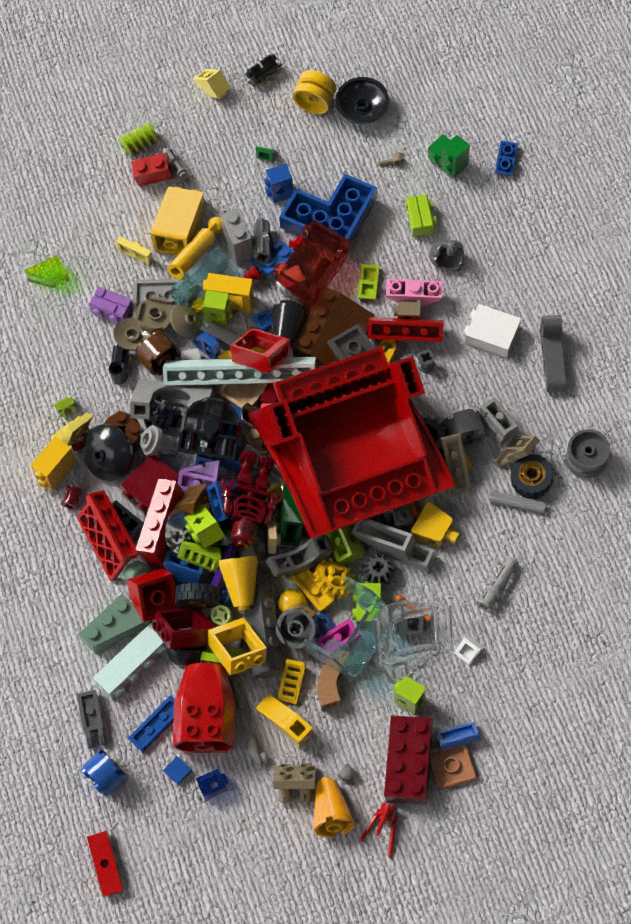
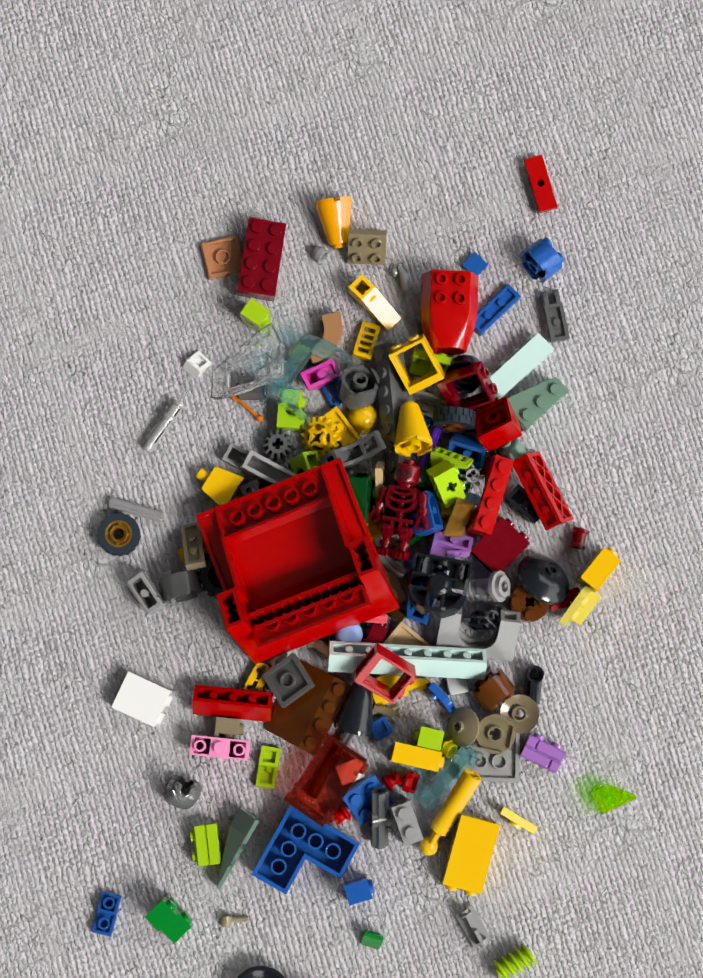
camera: 175 degrees right, 15 degrees up
(64, 404) = (590, 641): lime tile -> none
(152, 169) = (499, 919): red brick -> none
(205, 781) = (445, 242): clear blue brick -> none
(216, 613) = (430, 400): yellowish green wheel -> none
(224, 336) = (425, 710): dark grey panel -> none
(238, 271) = (408, 781): none -> red plate
(386, 814) = (284, 213): red plant -> none
(389, 221) = (238, 835): none -> sand green wedge
(423, 365) = (215, 673): dark grey bush -> none
(458, 736) = (214, 281): blue tile -> none
(516, 449) = (130, 560): dark tan wing -> none
(552, 353) = (82, 665): dark grey beam -> none
(587, 453) = (49, 552): dark grey wheel -> none

